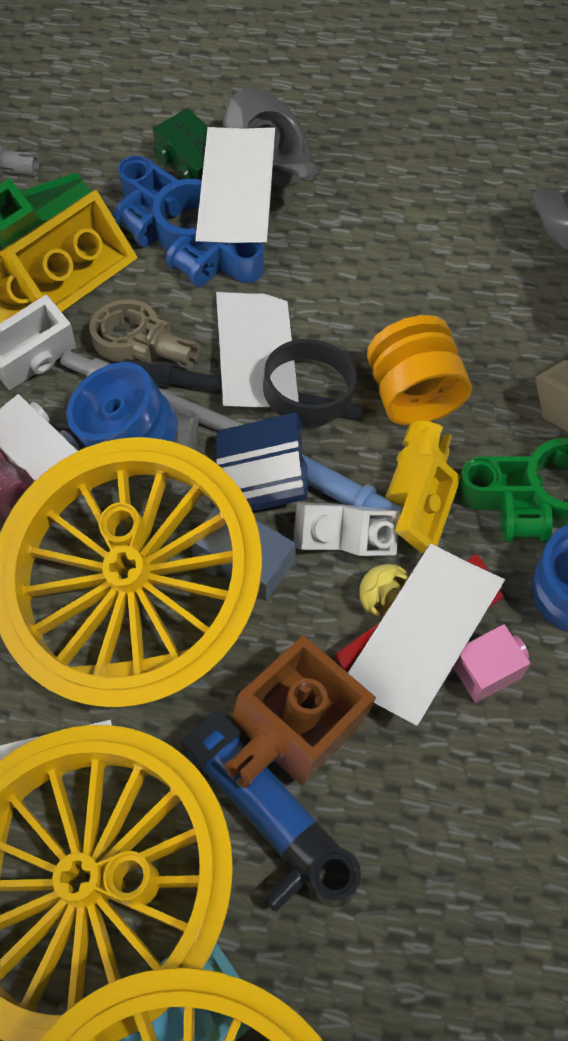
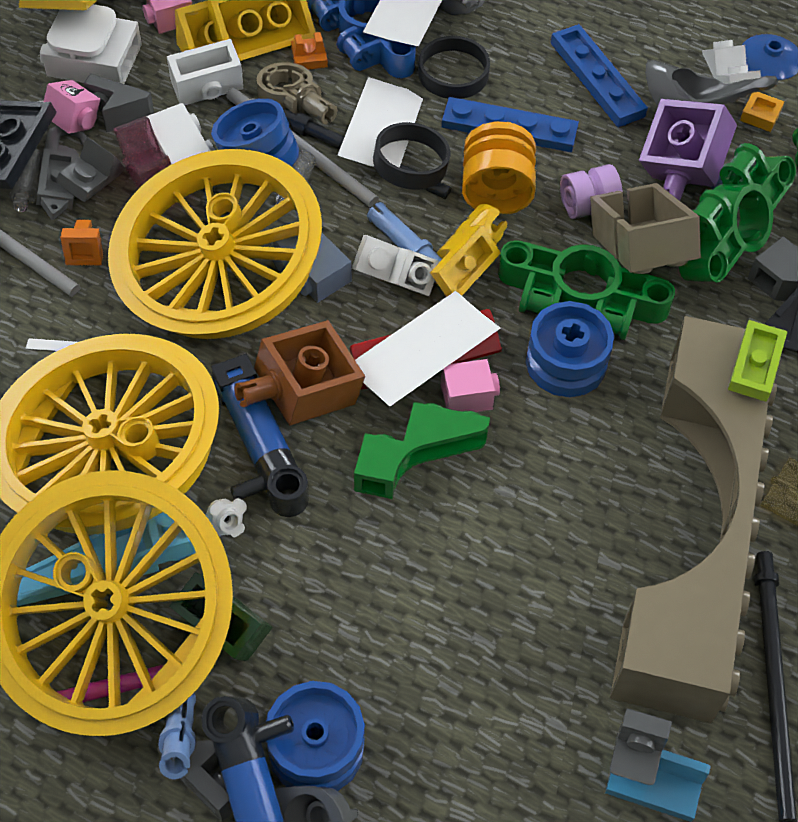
camera: 15 degrees right, 5 degrees down
(137, 280) = (309, 52): none -> orange tile
(265, 460) = (353, 202): dark blue slope -> none
(270, 941) = (220, 510): none -> white plate
(315, 223) = (454, 43): none -> black tyre
(381, 588) = (405, 310): light yellow plate -> none
(388, 305) = (546, 130): none -> blue plate
(468, 742) = (430, 435): none -> green arch
(473, 220) = (599, 75): none -> blue plate
(516, 367) = (579, 186): none -> lavender wheel

